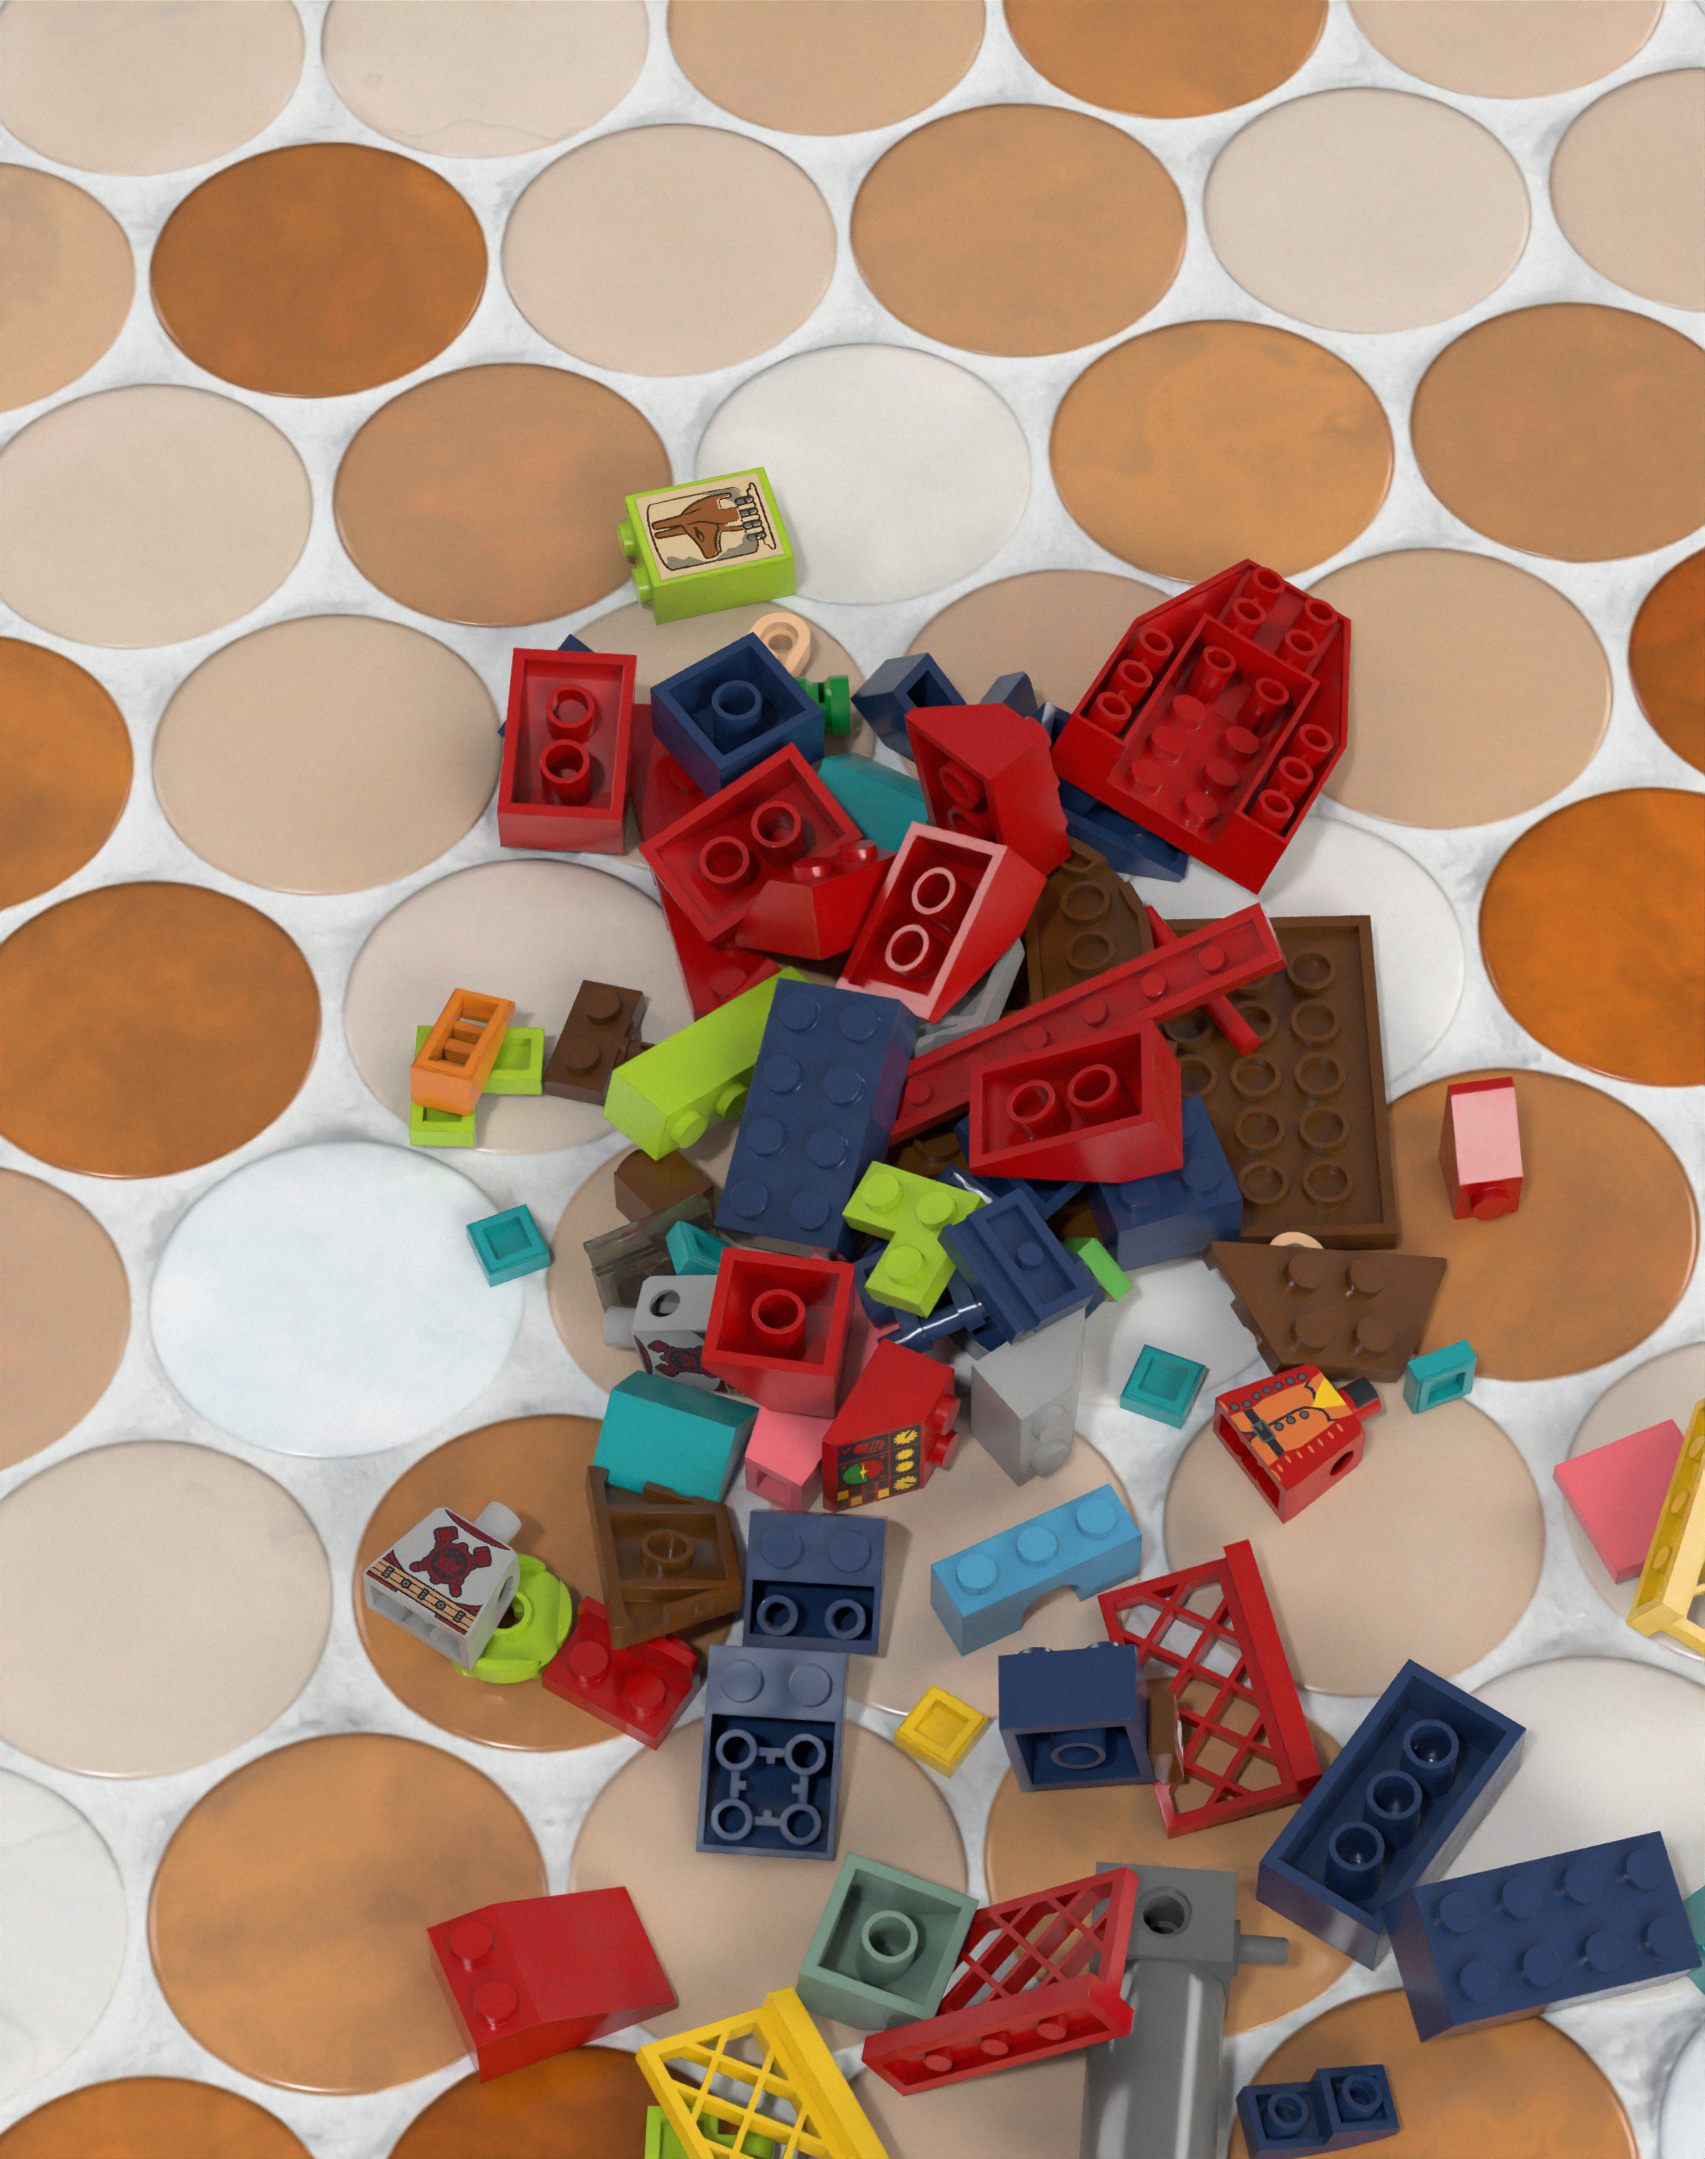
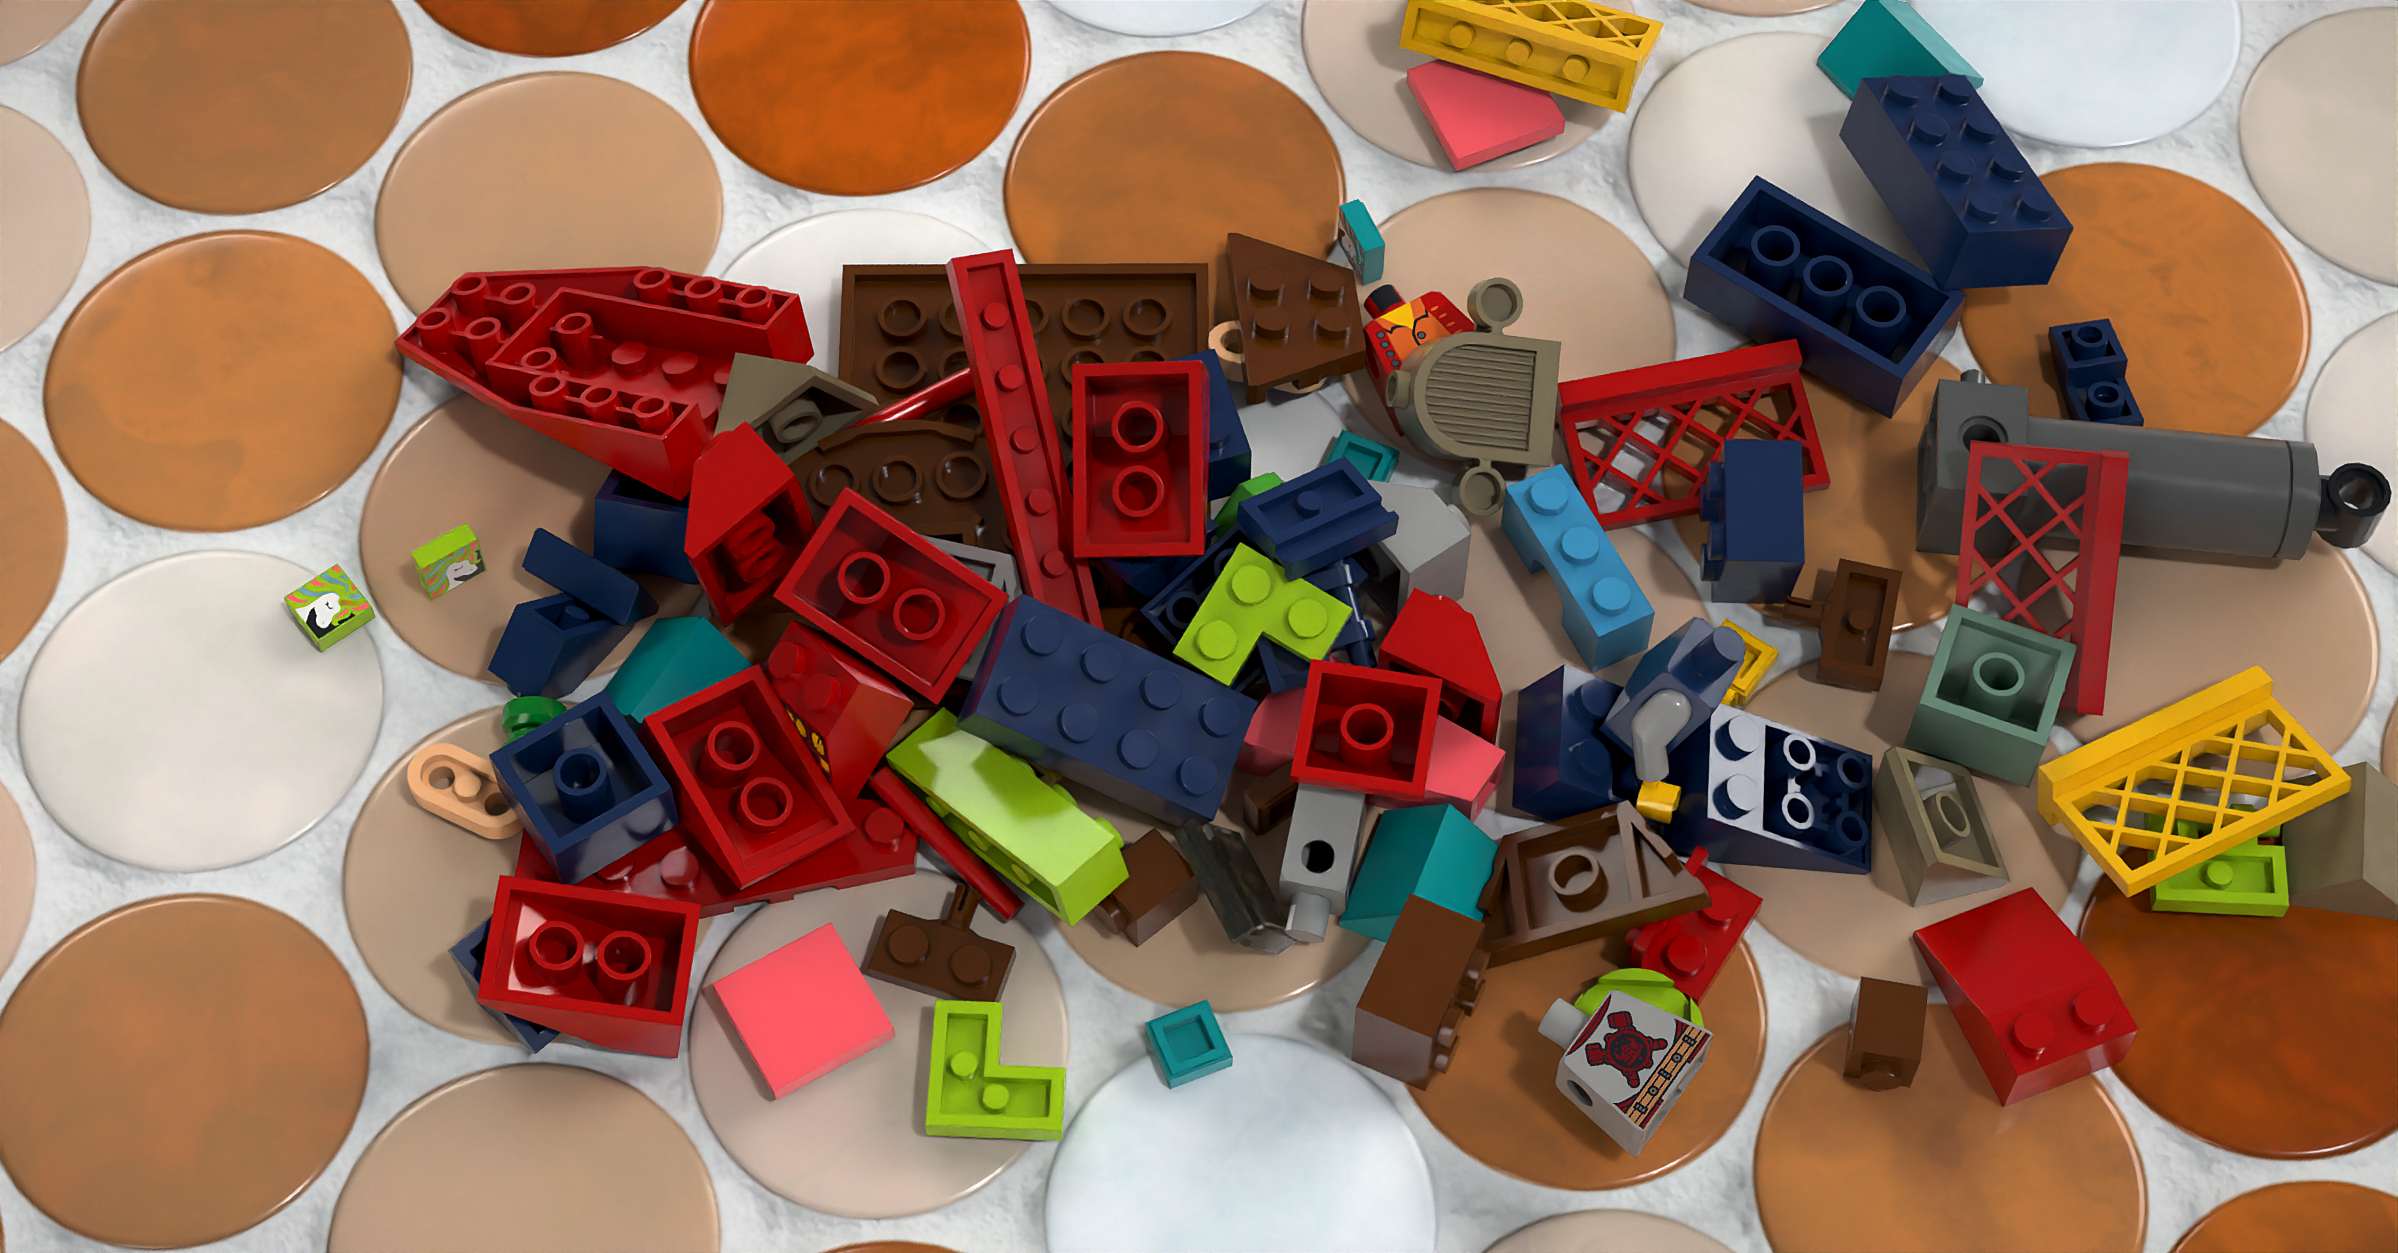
camera: 90 degrees left, 5 degrees up
(455, 1086) = (1010, 1086): orange slope -> none
(498, 1839) = (1885, 1033): none -> reddish brown brick
(531, 1406) = (1420, 993): none -> reddish brown brick
(539, 932) = (803, 1010): none -> coral tile
(694, 1250) = (1253, 829): teal tile -> none
(707, 546) = (301, 843): brick -> none
(736, 1901) = (1936, 827): none -> dark tan slope
(850, 1615) = (1668, 699): none -> dark blue torso
(964, 549) = (329, 607): none -> tile
(984, 1838) = (1852, 623): none -> reddish brown plate
(1009, 626) = (448, 561): none -> lime tile
(1165, 849) = (789, 404): none -> dark tan slope
(1216, 1460) = (1480, 398): none -> dark tan piece
(1481, 1149) = (1130, 187): slope -> none

